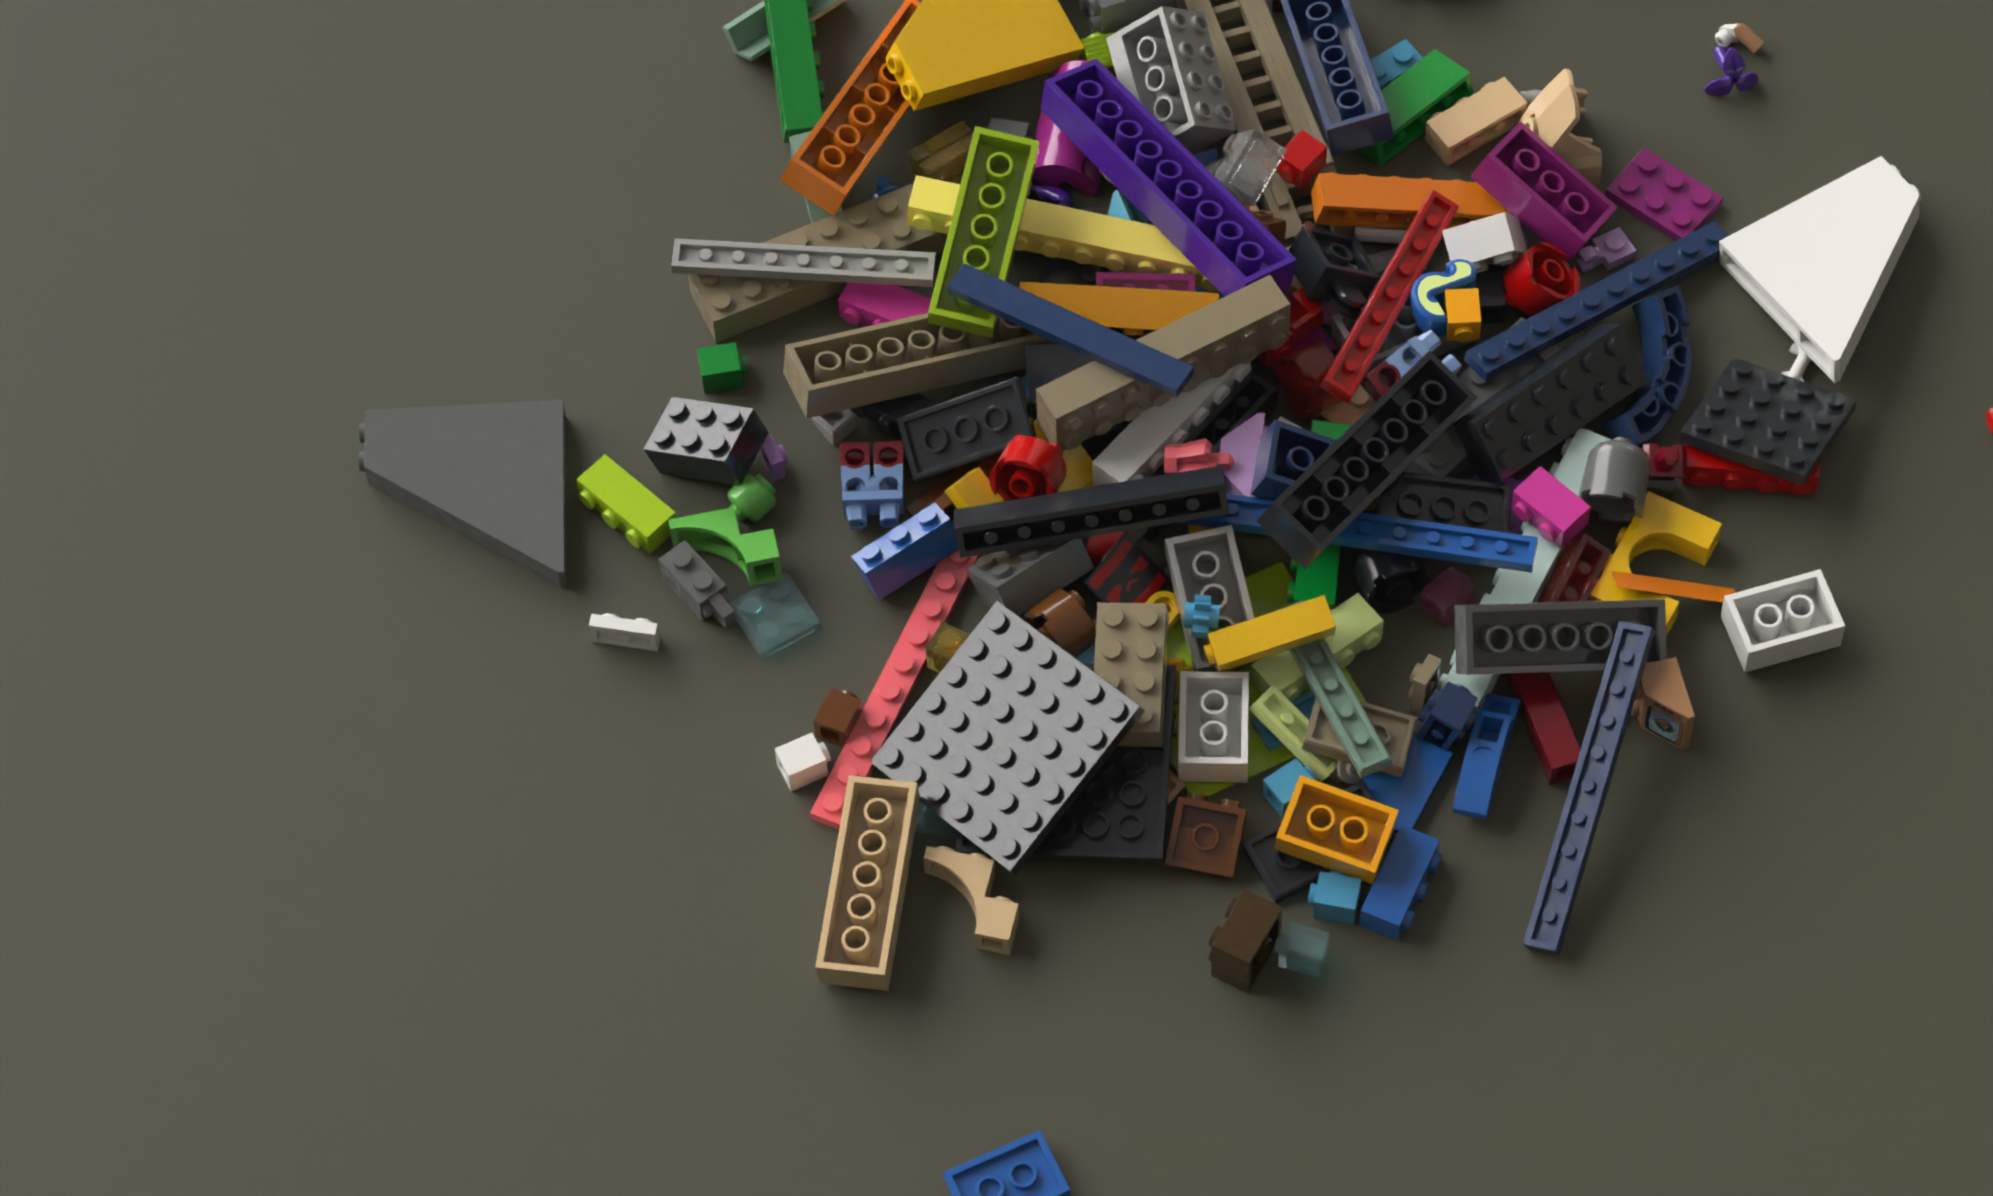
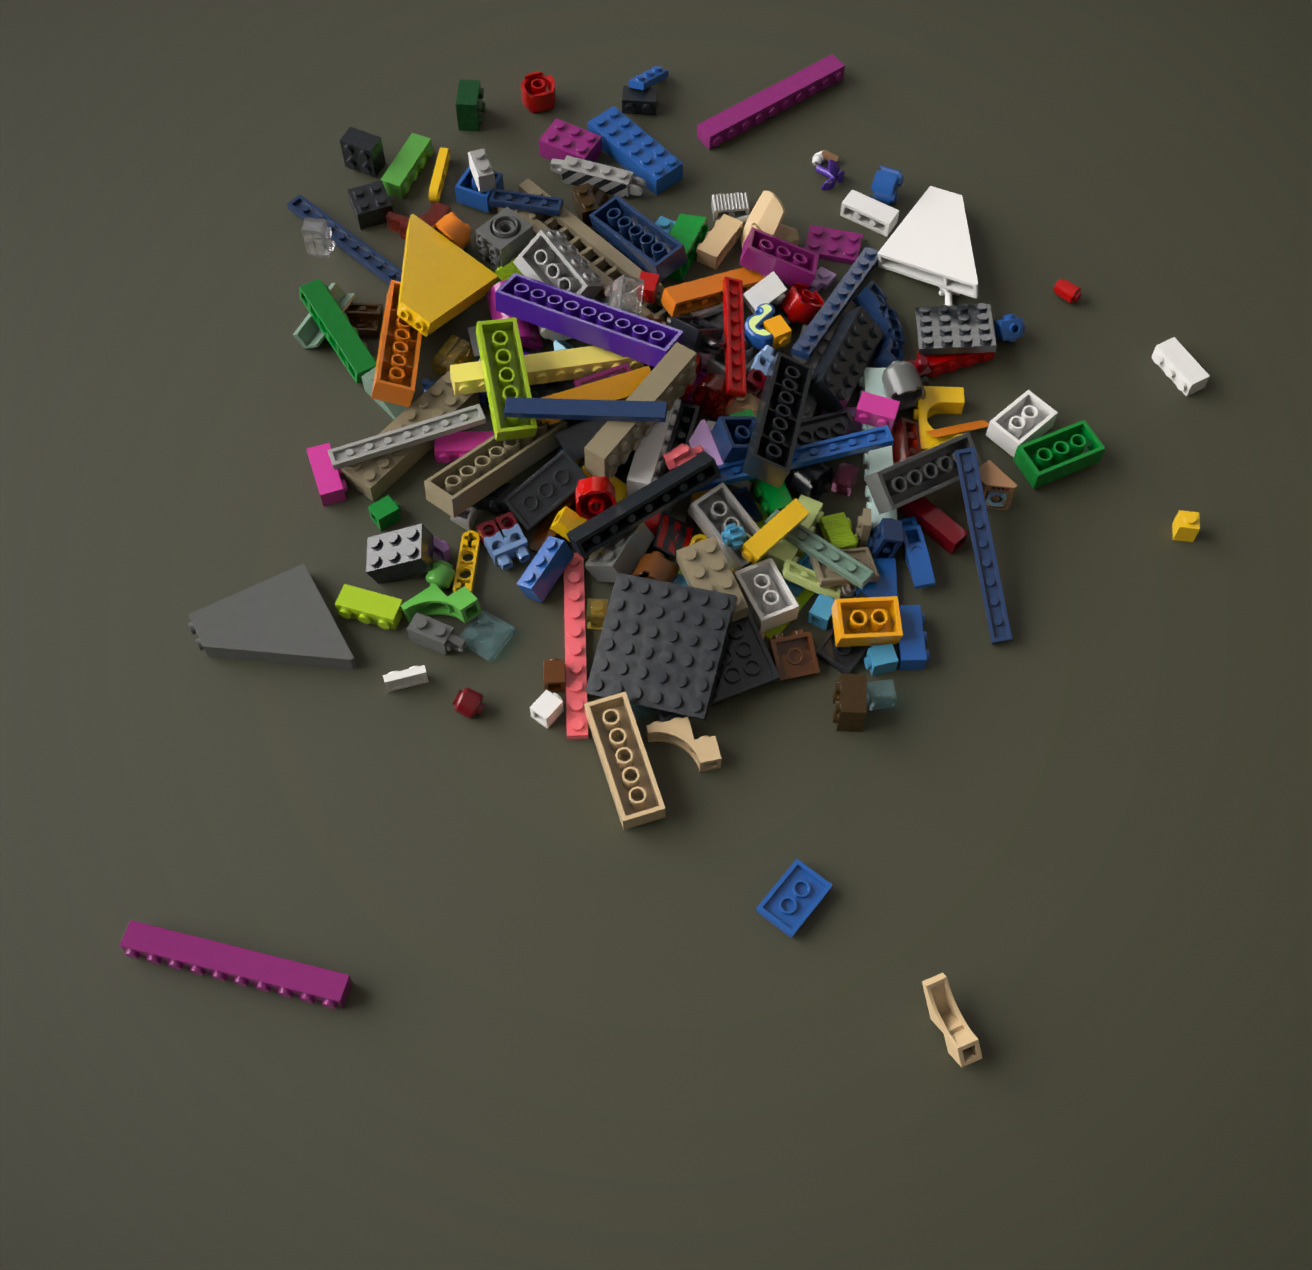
camera: 30 degrees left, 0 degrees up
(203, 936) = (236, 964): none -> magenta brick
(660, 290) = (327, 479): none -> dark pink brick
(694, 705) = (468, 703): none -> dark red head
(804, 501) = (469, 566): none -> yellow beam
(845, 38) = (365, 318): none -> dark brown slope
(1268, 577) = (747, 502): none -> dark blue tile
(1384, 675) = (837, 531): none -> lime brick
(1526, 64) = (731, 204): none -> light grey brick
(1755, 164) = (869, 213): none -> white brick
(1806, 128) = (886, 185): none -> blue brick
(1812, 694) = (1058, 454): none -> green brick
(1863, 465) = (1009, 328): none -> blue brick
(1949, 893) = (1186, 526): none -> yellow brick

